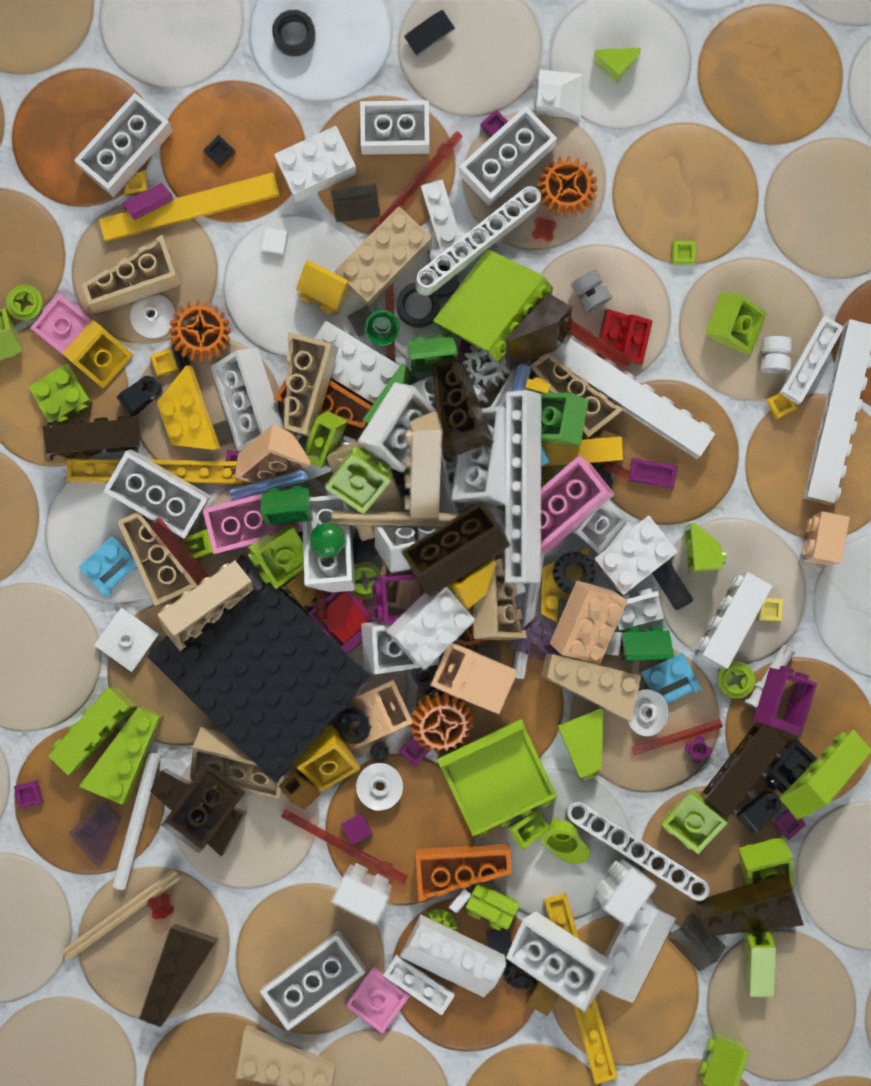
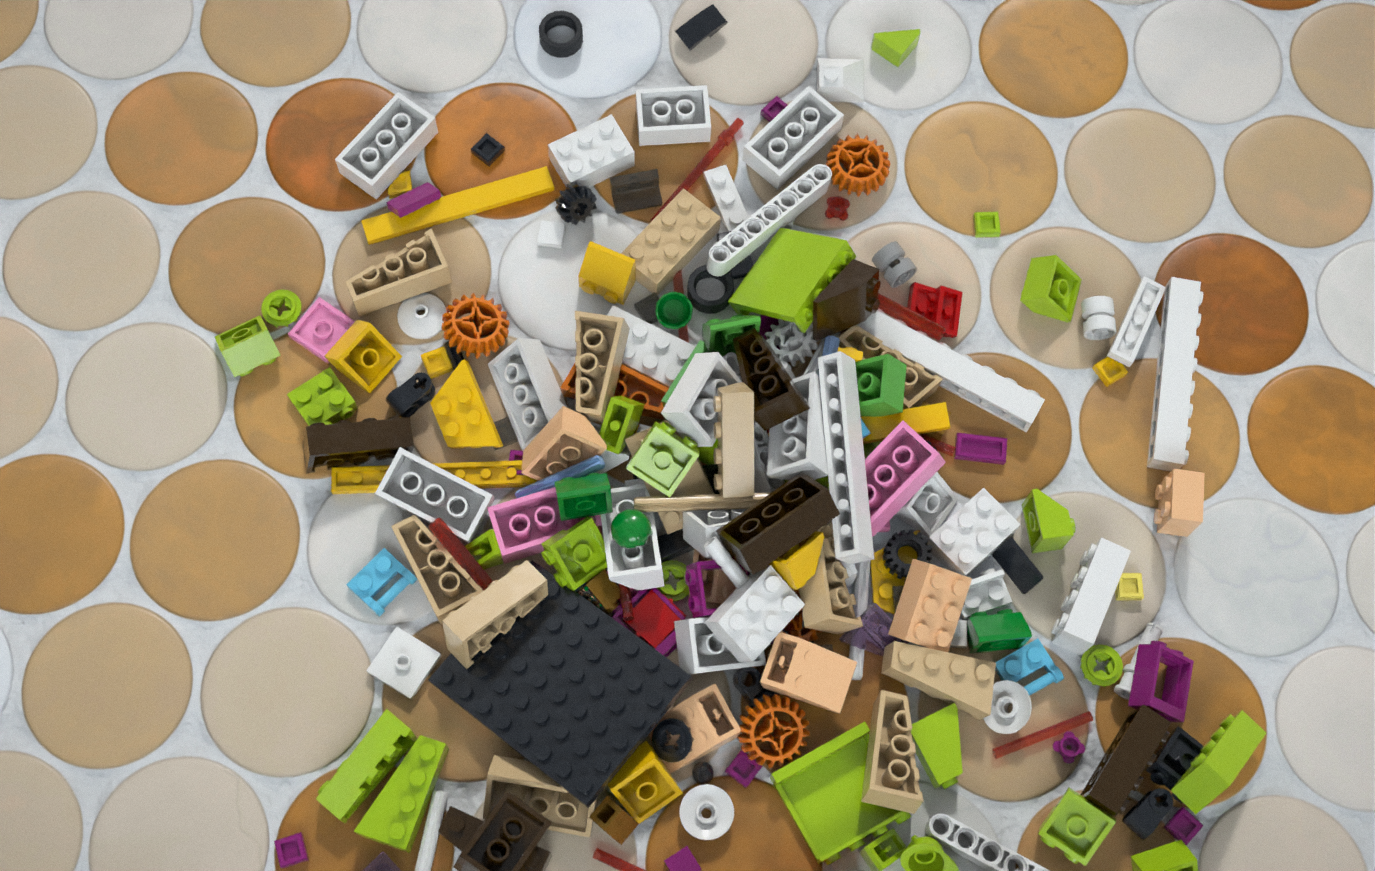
camera: 10 degrees left, 15 degrees down
(298, 214) = (575, 203): none -> black gear
(405, 575) = (728, 565): none -> white piece
(539, 763) = (890, 763): none -> tan wedge

